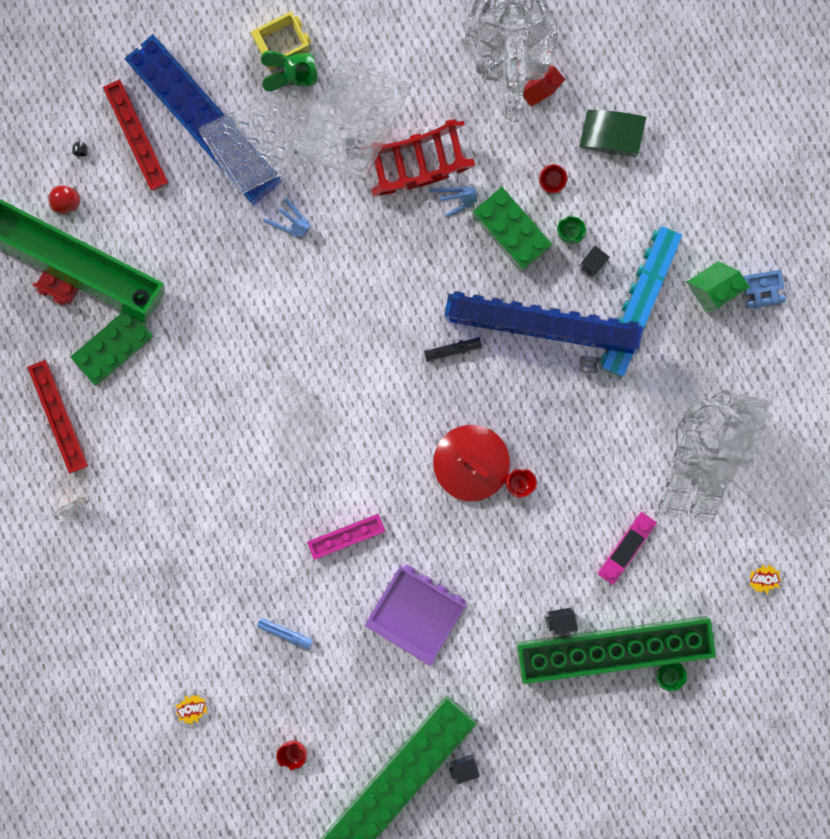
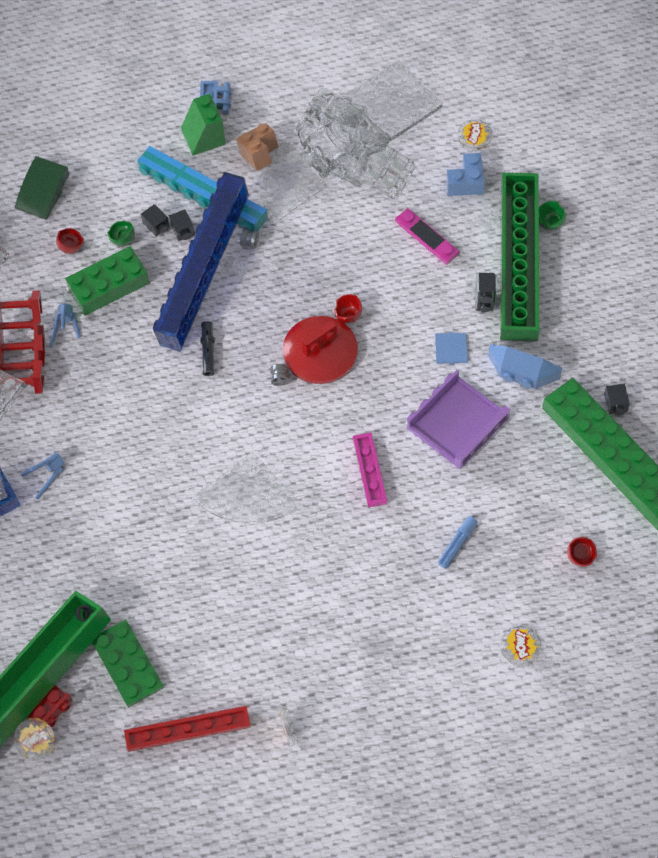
camera: 75 degrees left, 25 degrees down
(21, 281) = (34, 739): none -> clear tile
(434, 428) = (279, 374): none -> flat silver wheel
(482, 670) = (523, 367): none -> medium blue wedge
(498, 593) = (451, 348): none -> medium blue piece
(592, 291) = (181, 225): none -> black brick
(704, 347) = (256, 145): none -> nougat brick
(705, 585) = (466, 180): none -> medium blue brick

